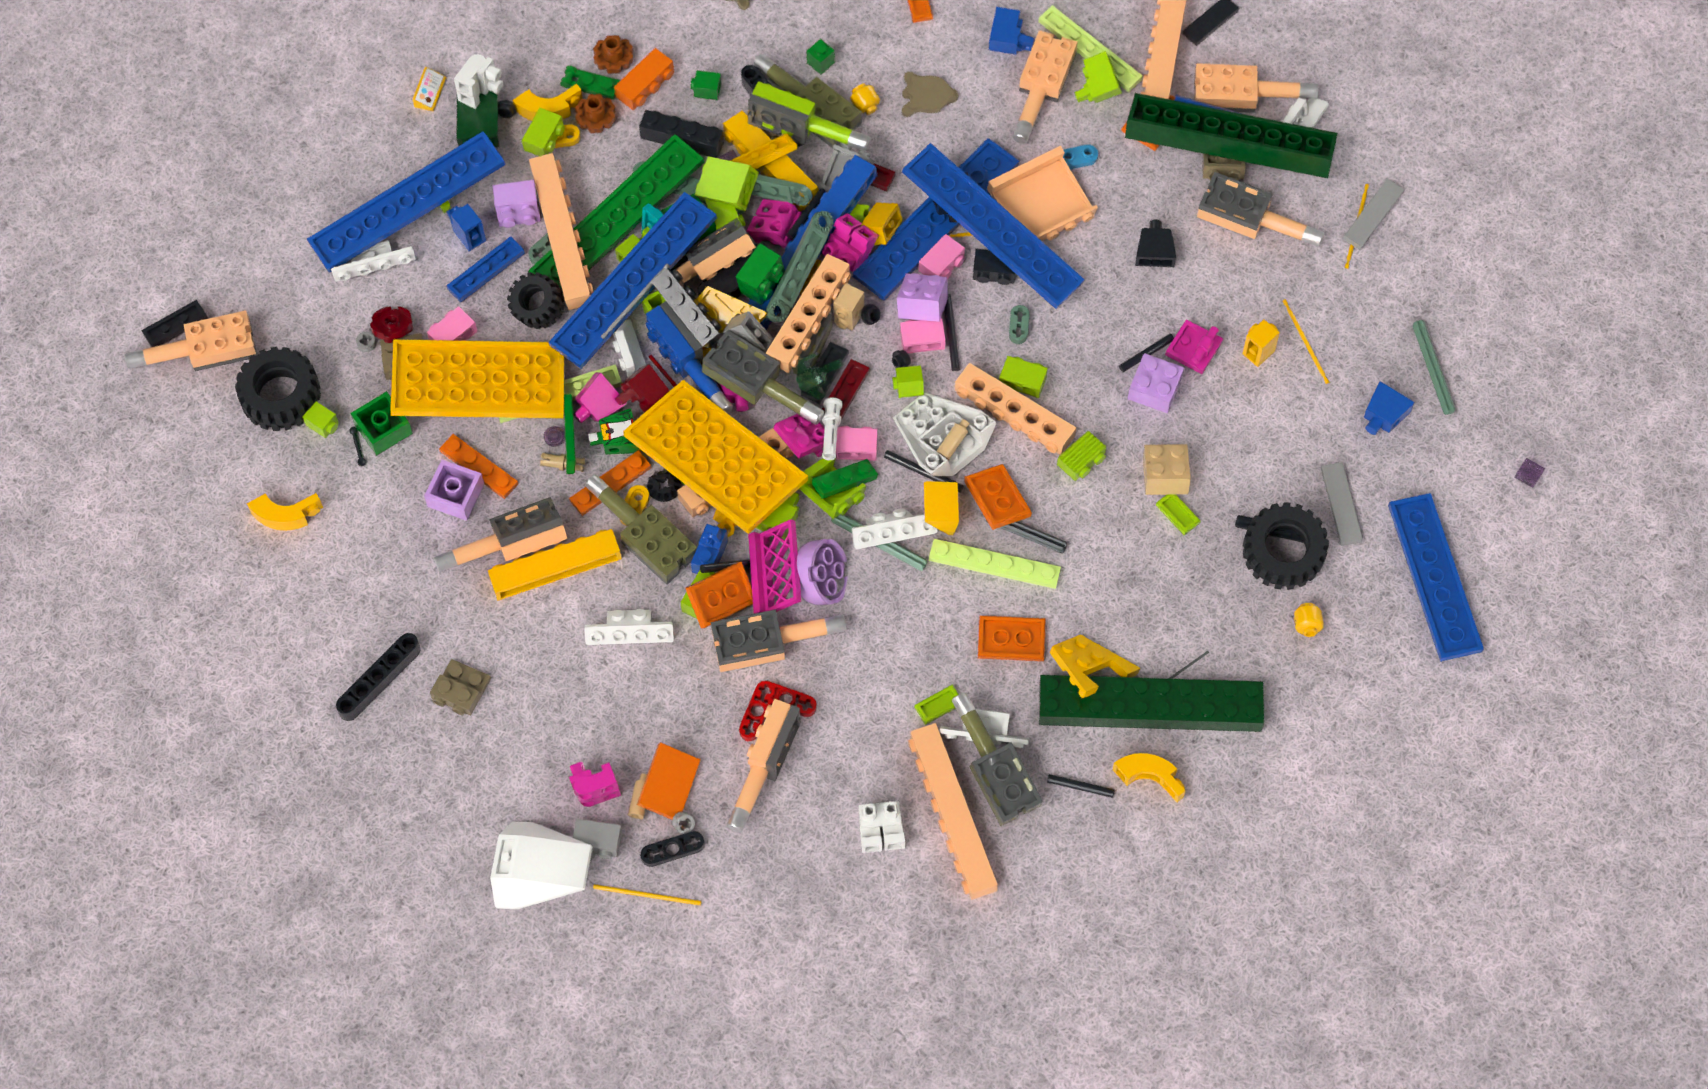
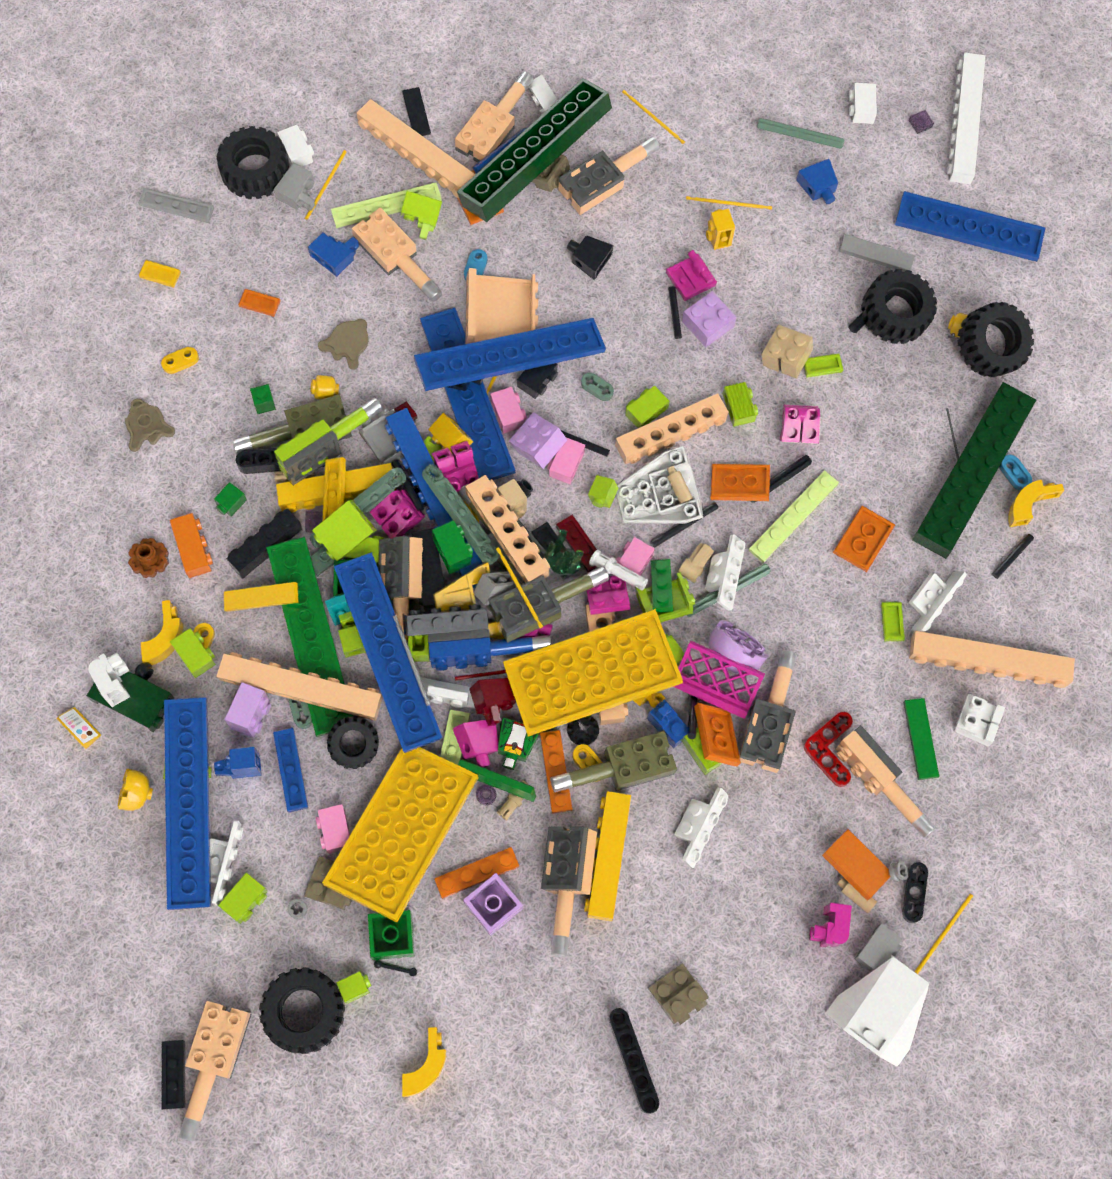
camera: 65 degrees left, 5 degrees up
(350, 294) = (243, 898): none -> lime brick
(396, 159) = (134, 790): none -> yellow cylinder
(401, 325) = (303, 885): dark red plate -> none
(589, 82) = (162, 590): green plate -> none
(595, 113) = (196, 602): dark orange plant -> none
(627, 157) = (261, 597): none -> yellow tile
(754, 348) = (519, 588): none -> yellow piece
(831, 785) = (921, 739): none -> green tile
(883, 498) = (695, 564): none -> tan piece
(900, 359) = (578, 488): black plate -> none
(941, 505) = (732, 523): yellow slope -> none
(998, 770) = (980, 606): dark grey piece -> none
(1083, 657) = (915, 496): yellow wing -> none
(1092, 517) = (800, 417): none -> hips
(1175, 747) = (1017, 472): none -> dark azure plate
(1311, 621) = (1014, 329): none -> black tyre
(1373, 214) = (652, 99): light grey tile -> none
(1510, 407) = (863, 103): none -> white brick
(1566, 513) = (967, 118): none -> white brick

